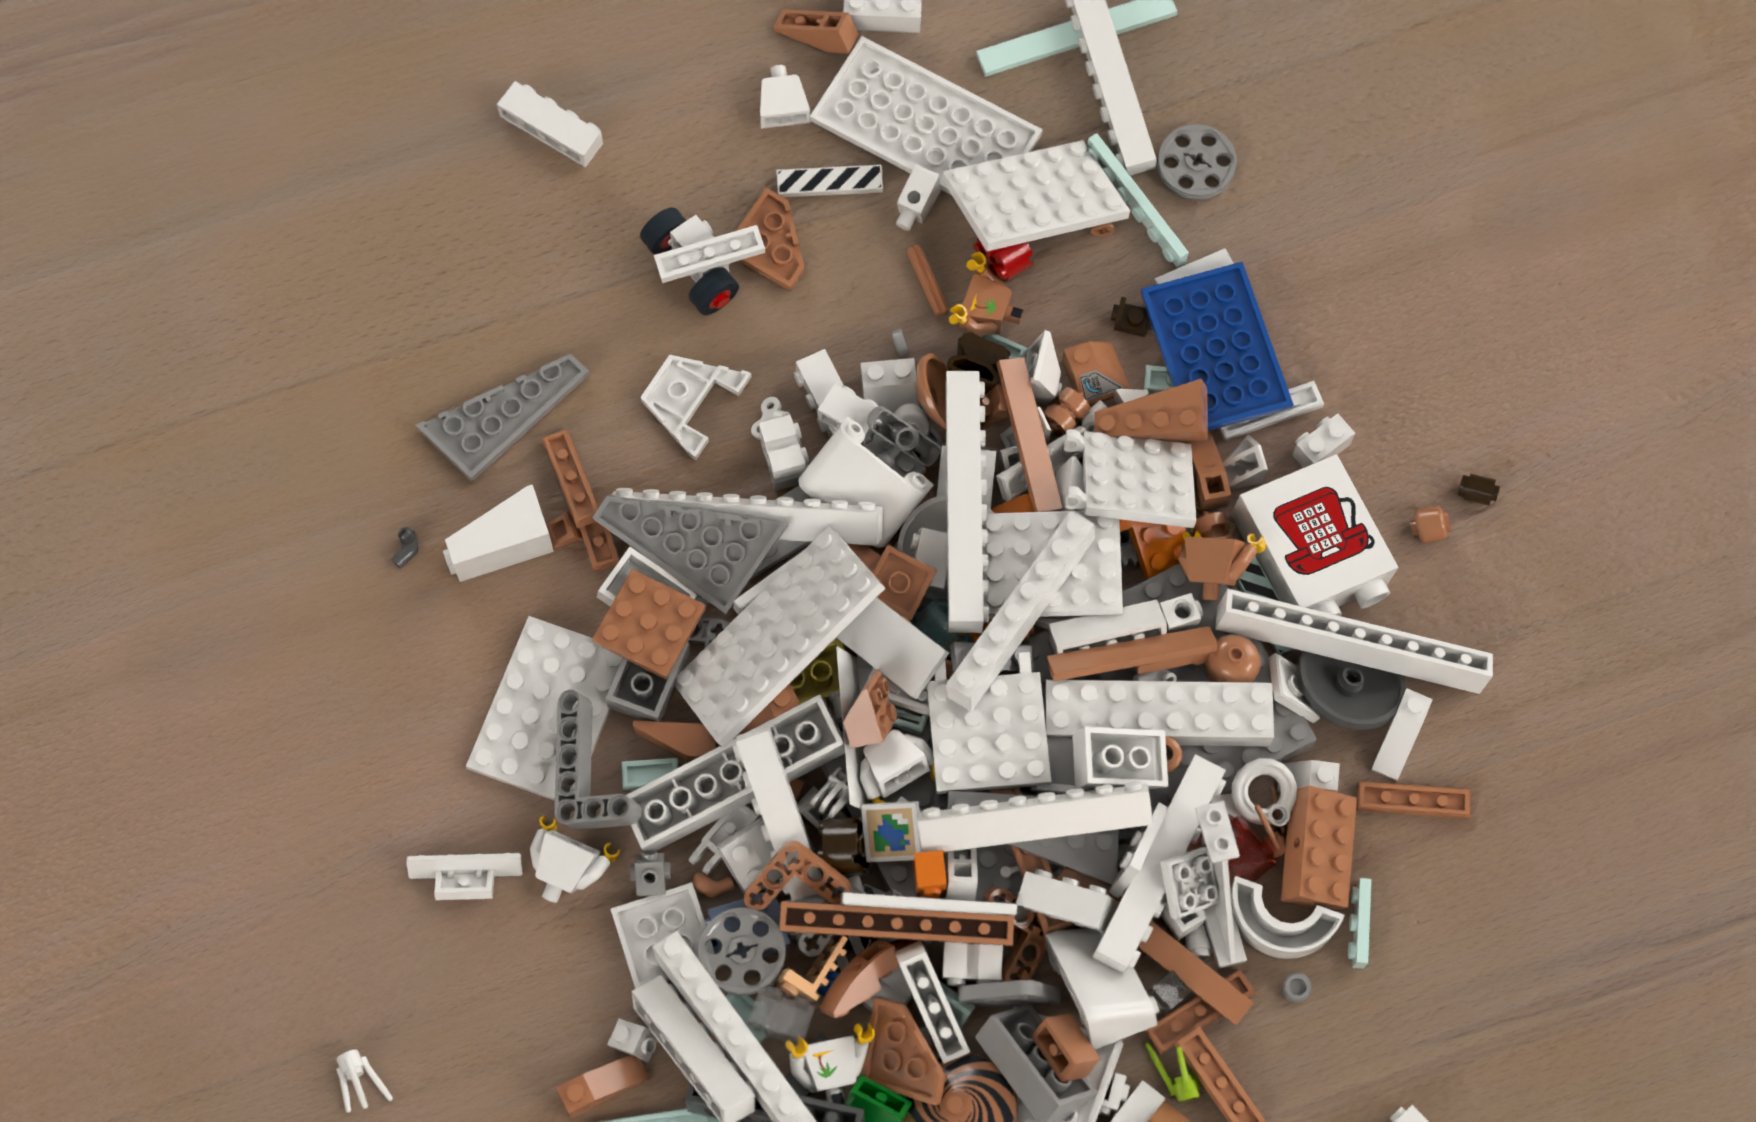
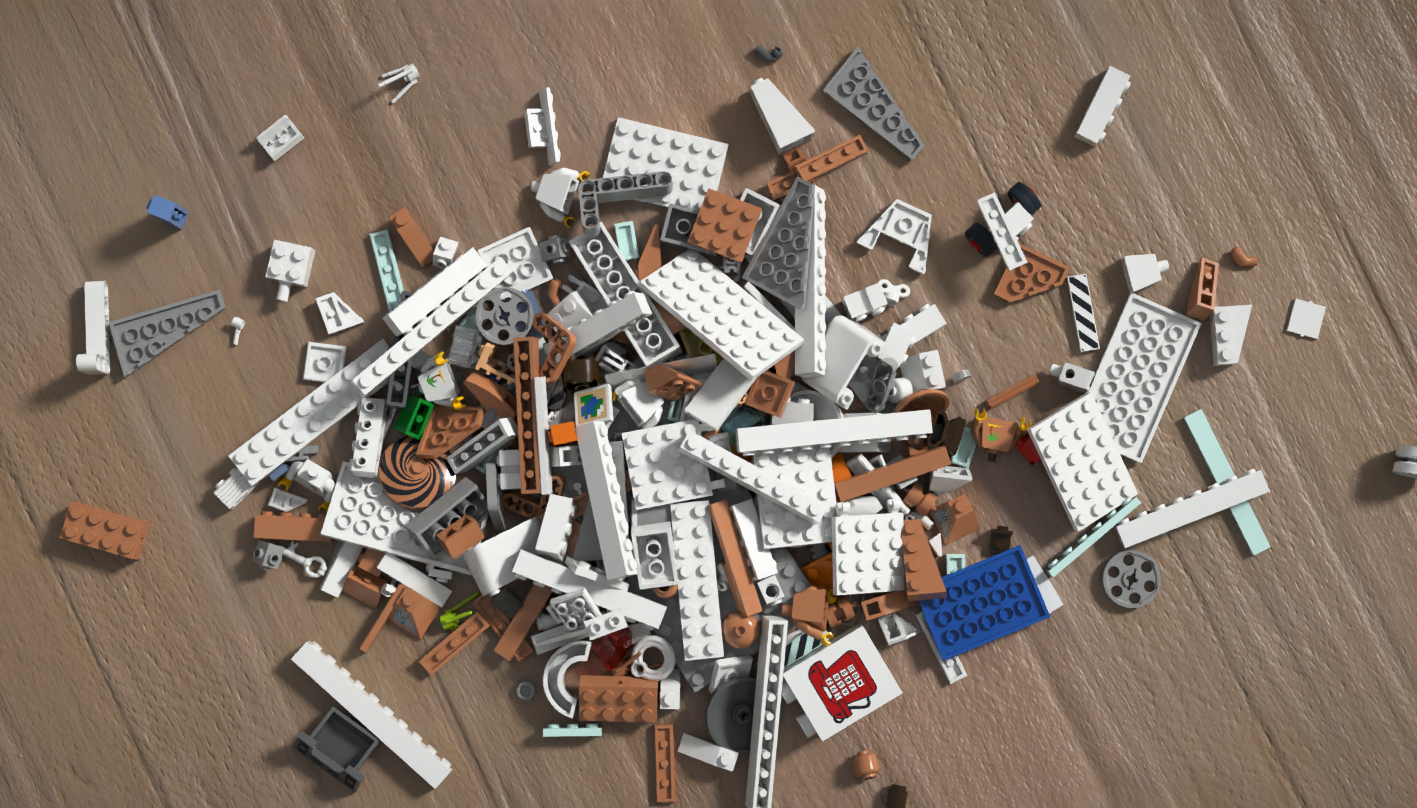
camera: 85 degrees right, 15 degrees up
(1327, 440) = (913, 680): white brick -> none

